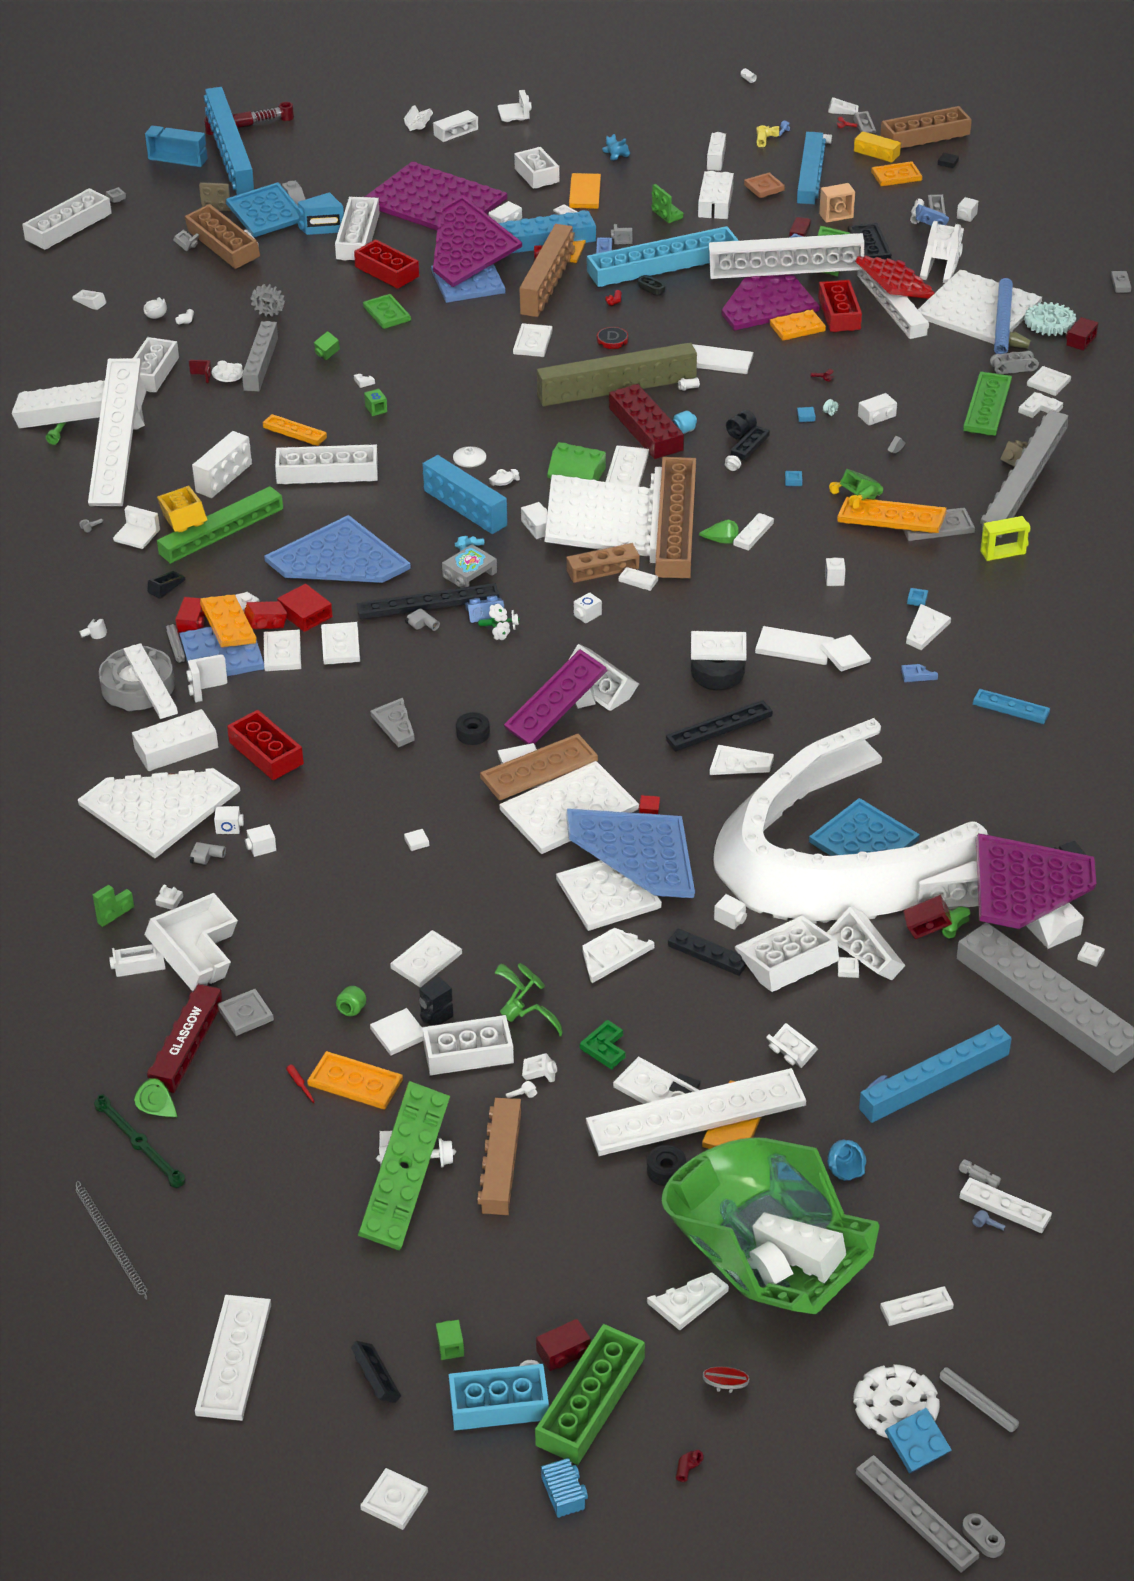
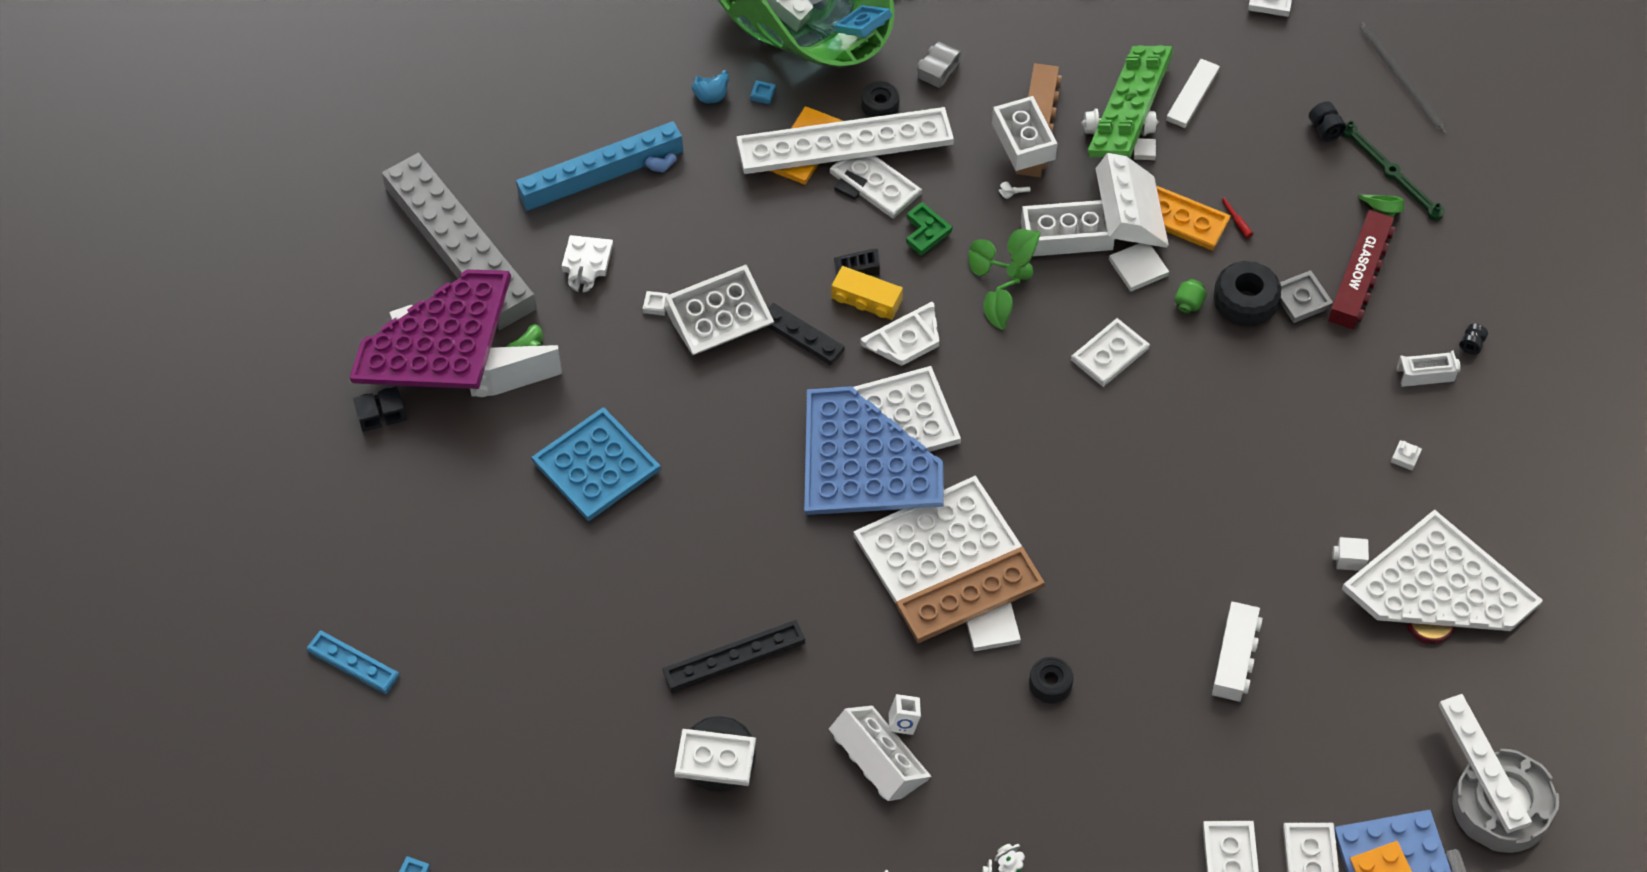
camera: 175 degrees left, 15 degrees up
(93, 983) = (1473, 339): none -> black wheel
(110, 906) = (1472, 432): bright green plate -> none
(175, 740) = (1417, 691): white brick -> none
(189, 937) = (1376, 369): white piece -> none
(200, 1173) = (1327, 121): none -> black wheel
(202, 852) = (1375, 516): light grey piece -> none
(205, 673) = (1416, 793): white bracket -> none
(260, 840) = (1308, 519): white brick -> none
(265, 744) = (1318, 662): red brick -> none
(297, 1003) = (1243, 308): none -> black tyre
(328, 749) = (1236, 651): none -> white brick
(337, 1204) = (1192, 93): none -> white tile
(394, 722) = (1152, 701): light grey wing -> none
(405, 1054) = (1130, 201): none -> white slope
(416, 839) = (1122, 513): white tile -> none
(436, 1002) = (1100, 273): black piece -> none
(514, 1104) = (1024, 133): none -> white brick
(539, 1066) = (995, 206): white bracket -> none
(555, 697) = (941, 692): magenta plate -> none
(610, 1206) = (938, 64): none -> light grey brick
(649, 804) = (839, 541): red tile -> none
(653, 982) = (866, 293): none -> yellow brick
(659, 1011) = (860, 257): none -> black slope
(695, 1192) = (863, 21): none -> dark azure plate
(730, 912) = (770, 373): white brick -> none
(738, 761) = (723, 596): white wing -> none
(792, 645) = (606, 799): white tile -> none
(792, 1045) = (737, 208): white bracket -> none
(819, 885) = (679, 526): white windscreen -> none
(845, 653) = (542, 769): white tile -> none
(864, 942) = (630, 315): white wedge -> none
(917, 673) = (456, 732): medium blue tile -> none
(922, 992) = (586, 260): none -> white plate
(926, 627) = (415, 820): white wing -> none
(927, 917) = (555, 331): dark red brick -> none
(979, 1173) = (587, 73): light grey axle -> none
(982, 1217) = (597, 33): sand blue hand -> none
(1005, 1205) = (574, 40): white plate -> none
(1091, 954) = (392, 297): white tile -> none

